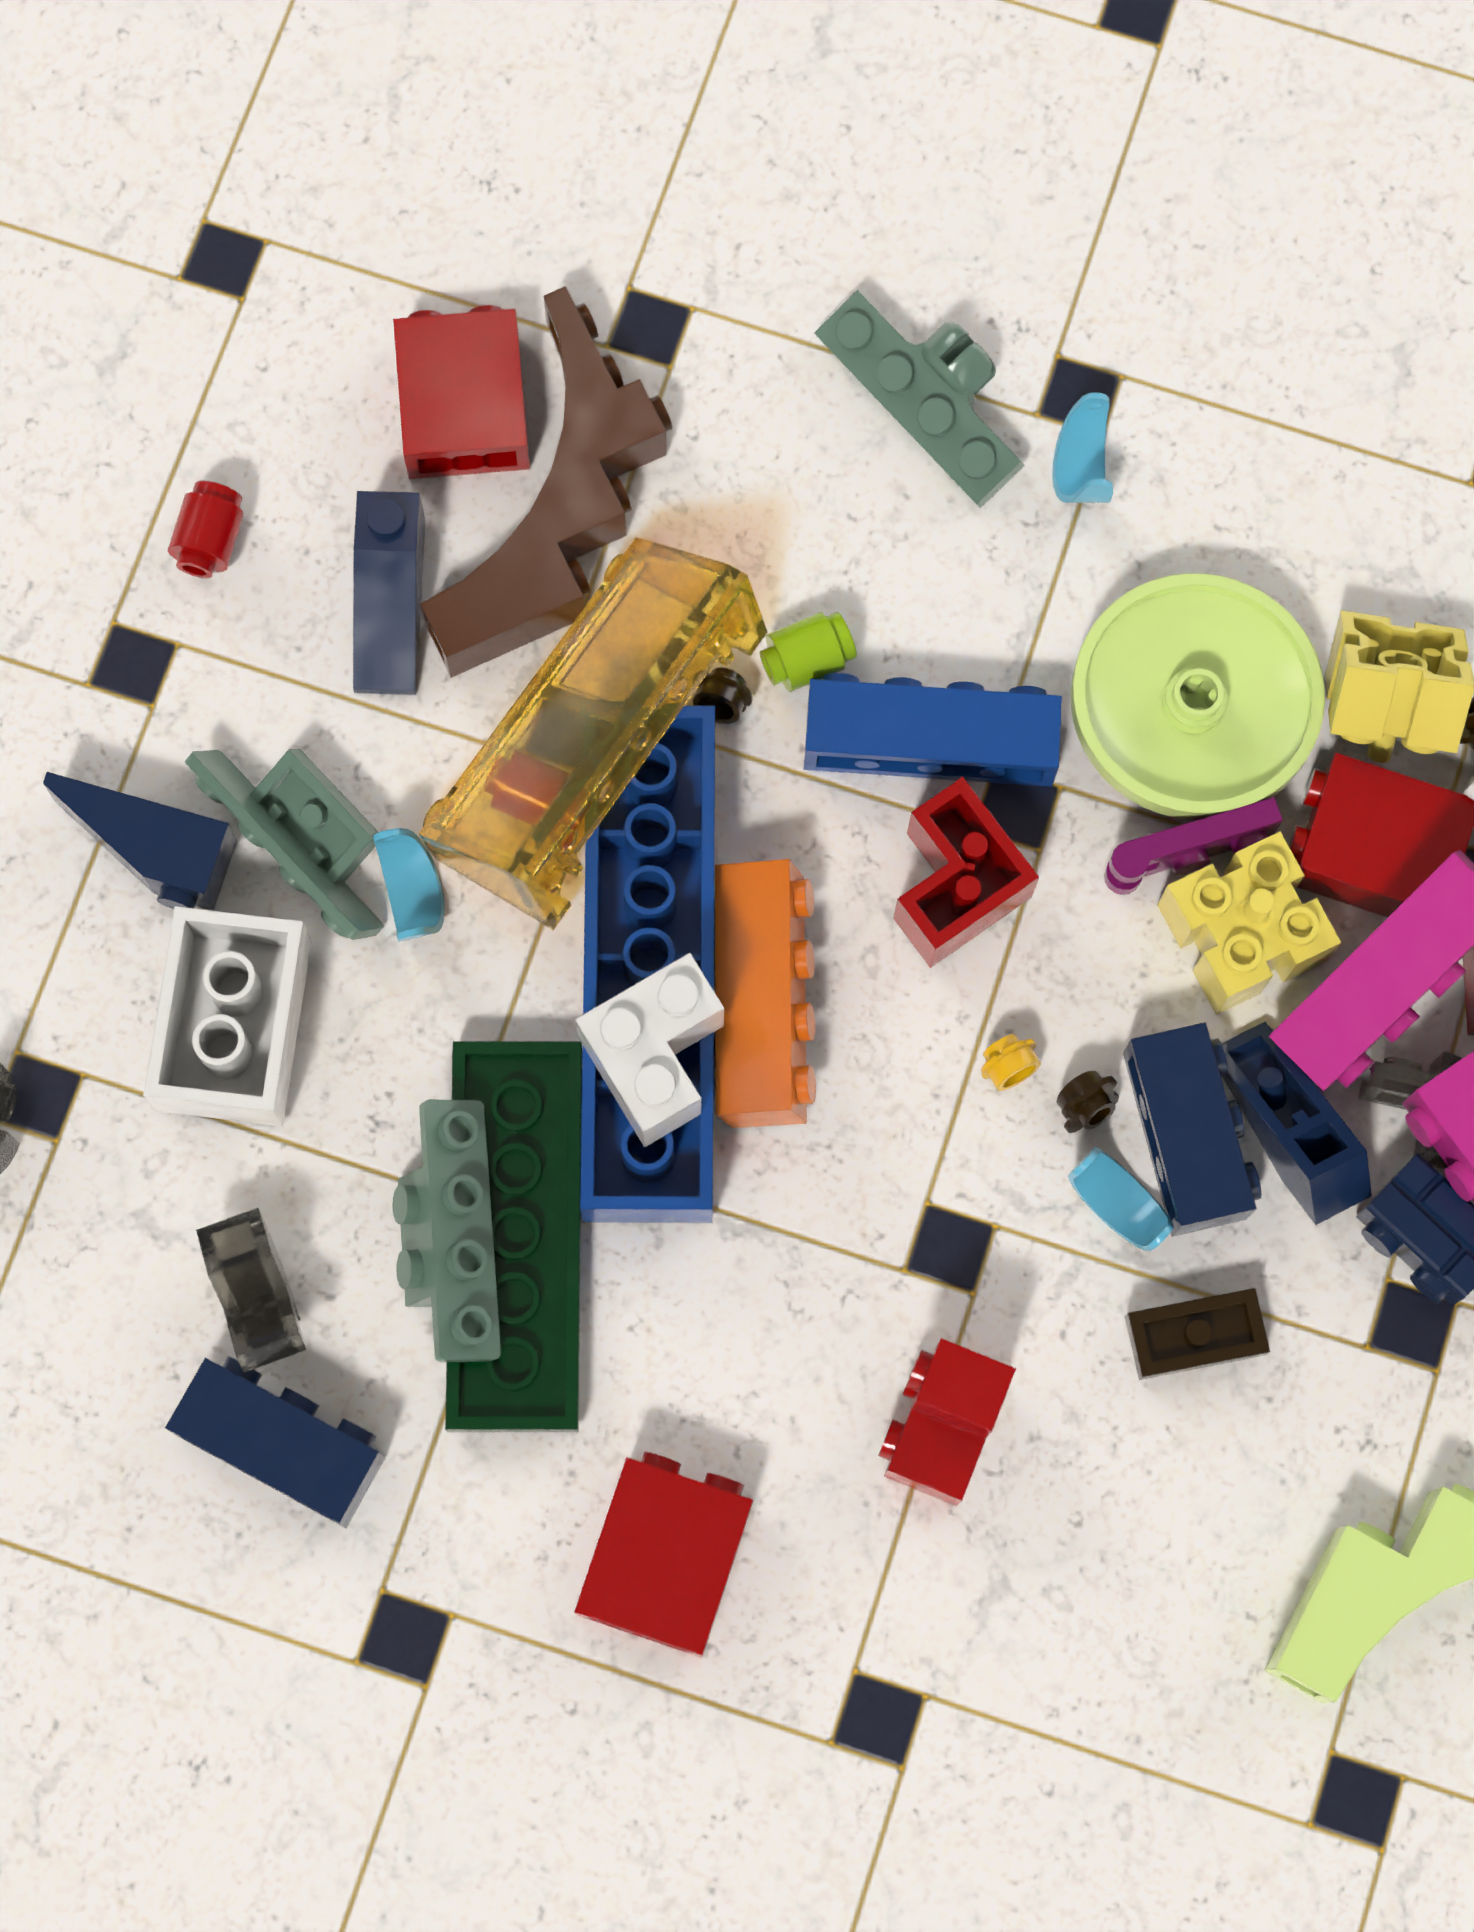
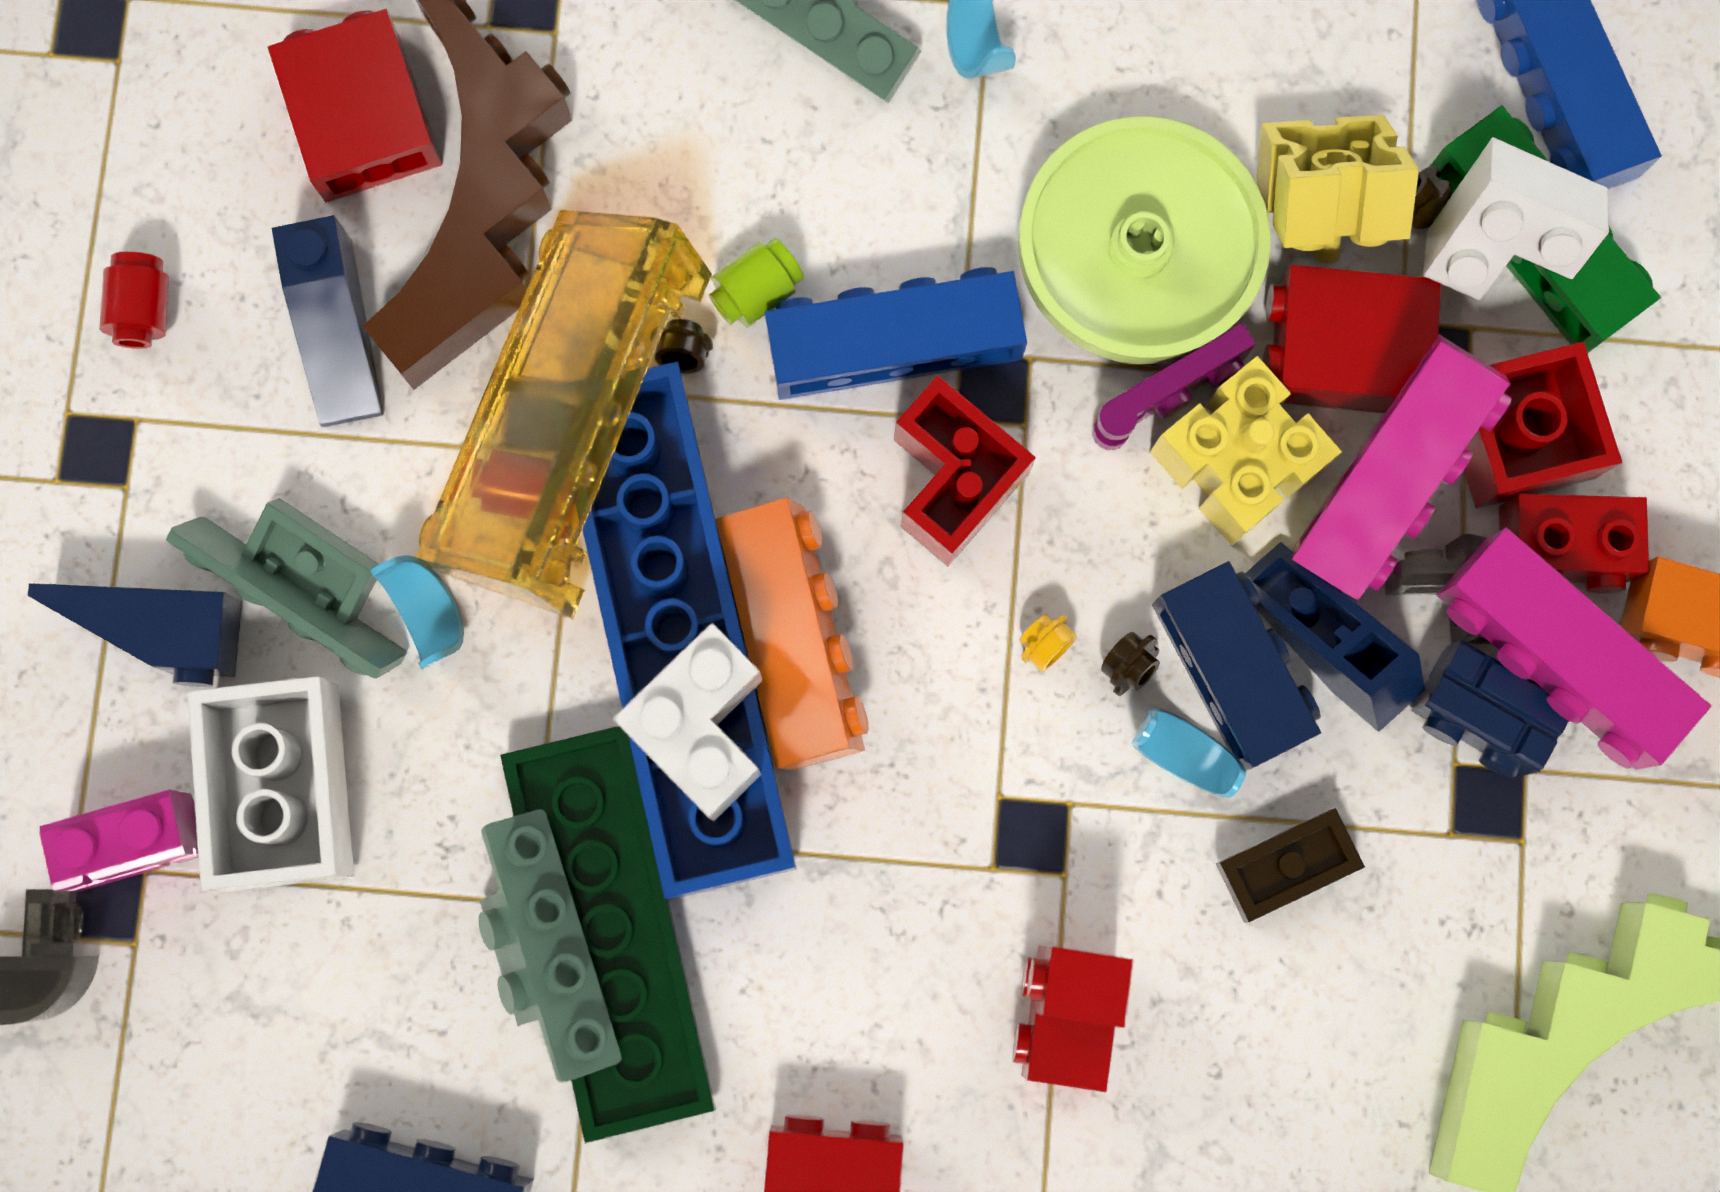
camera: 15 degrees left, 5 degrees up
(73, 1036) = (120, 841): none -> dark pink brick
(251, 1289) = (362, 1051): clear smoke brick -> none

